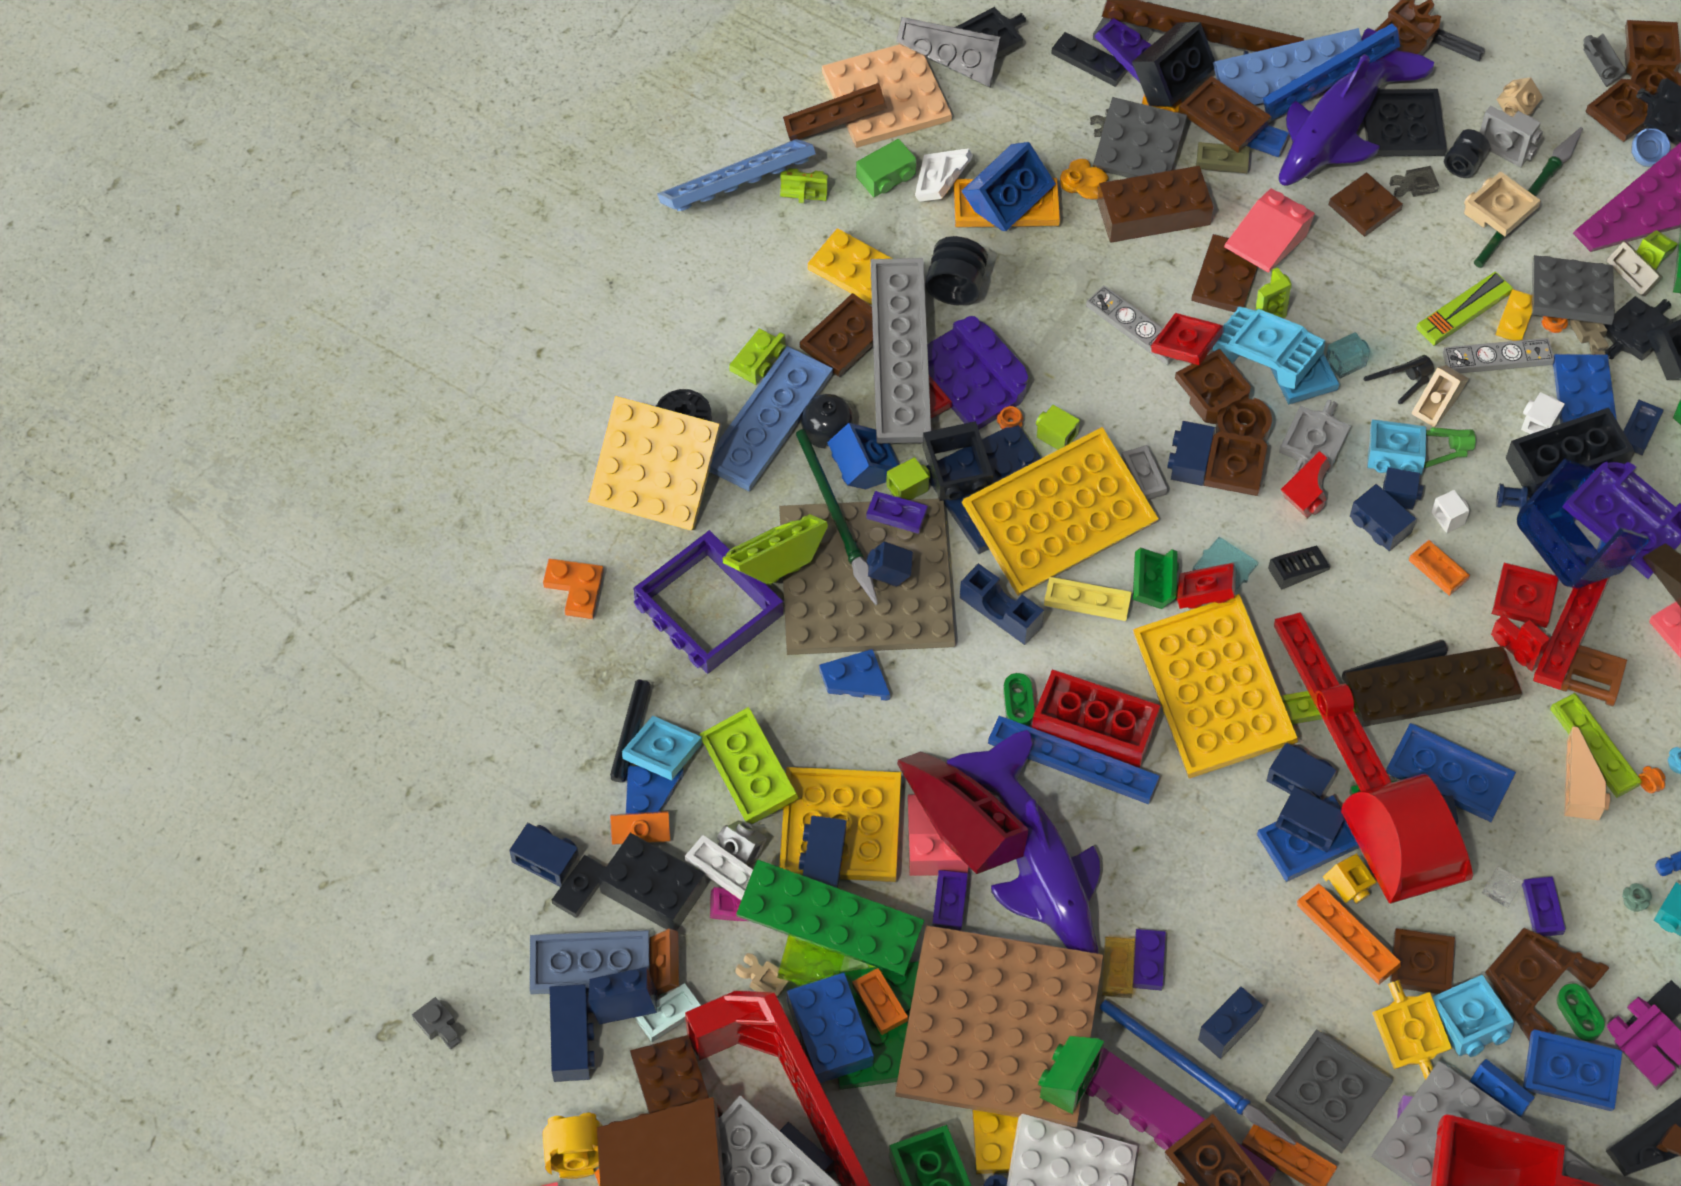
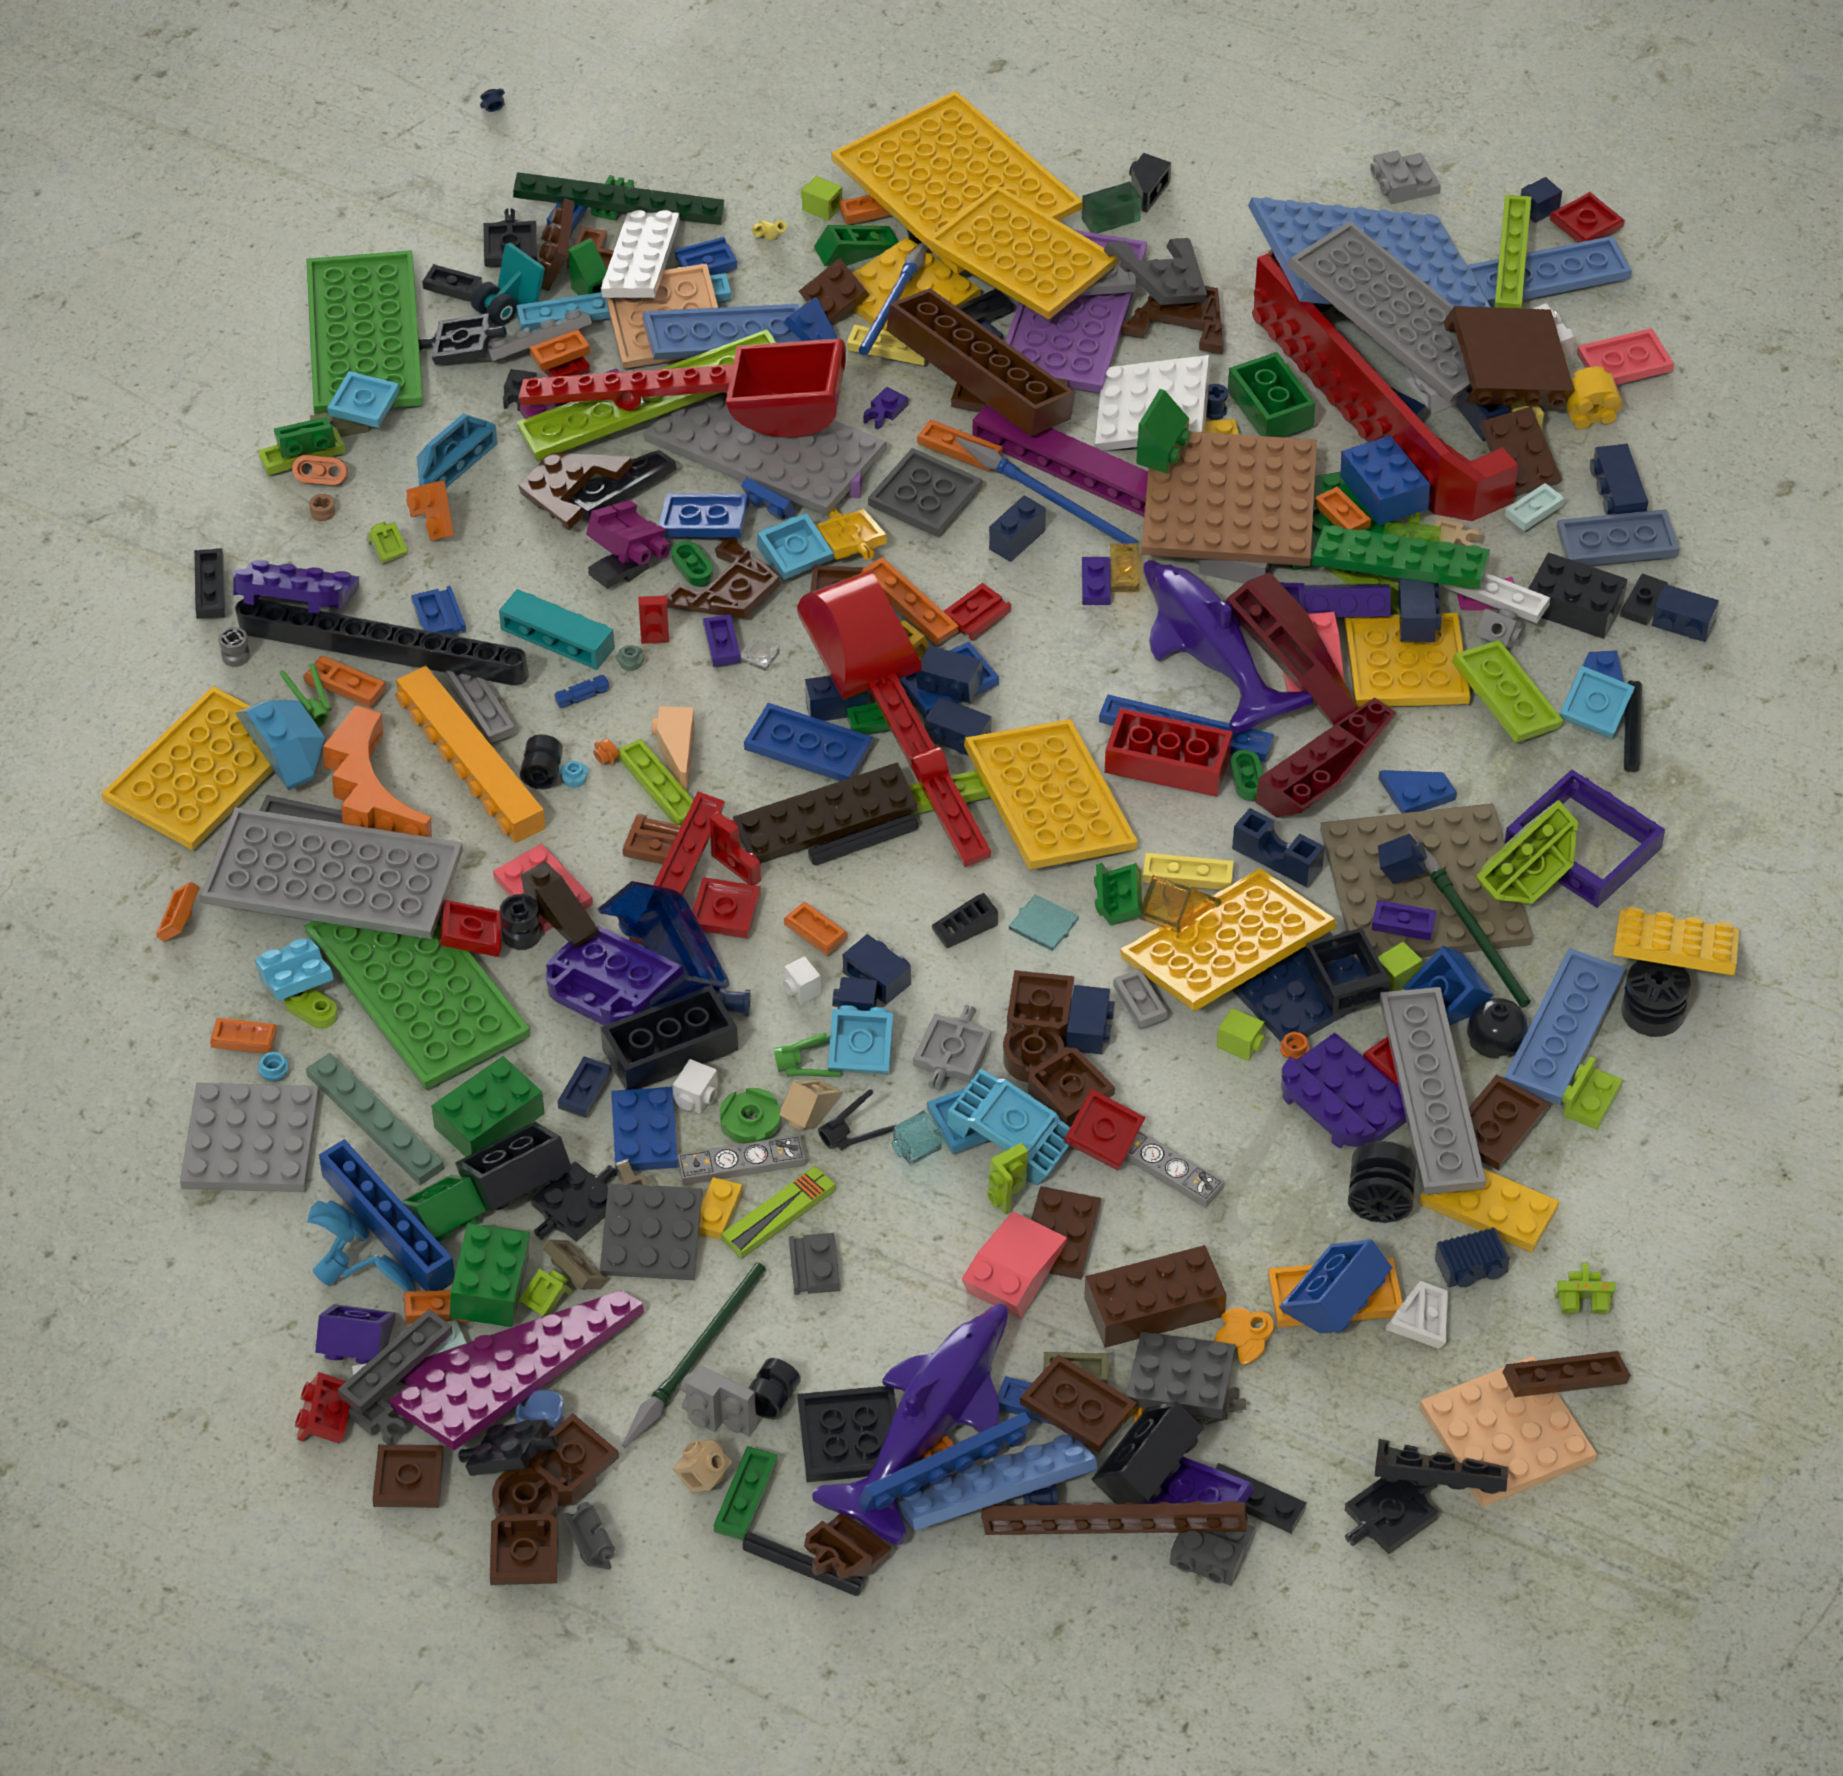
camera: 175 degrees right, 10 degrees down
(435, 1021) = (1743, 492): dark grey plate -> none
(580, 580) = (1723, 857): orange plate -> none
(623, 995) = (1578, 500): dark blue brick -> none
(646, 825) = (1599, 642): orange plate -> none
(664, 960) = (1546, 535): dark orange plate -> none
(731, 176) = (1669, 1286): medium blue plate -> none
(886, 168) = (1488, 1320): bright green brick -> none
(890, 218) = (1472, 1258): none -> dark blue brick
(894, 885) = (1349, 599): none -> dark purple brick
(942, 695) = (1323, 762): none -> dark red wedge
(1100, 554) = (1175, 905): none -> clear yellow slope
(1206, 586) = (1064, 873): red plate -> none
(1277, 922) = (978, 610): none -> red plate
(1305, 486) = (960, 985): red arch -> none
(1365, 204) = (896, 1329): reddish brown plate -> none
(1418, 181) = (832, 1357): clear smoke plate -> none
(1433, 263) = (814, 1263): none -> dark grey plate
(1483, 85) = (745, 1493): none -> green plate
(1492, 403) = (750, 1130): none -> bright green plate
(1500, 204) = (733, 1323): tan plate -> none
(1618, 916) = (653, 619): none -> red plate

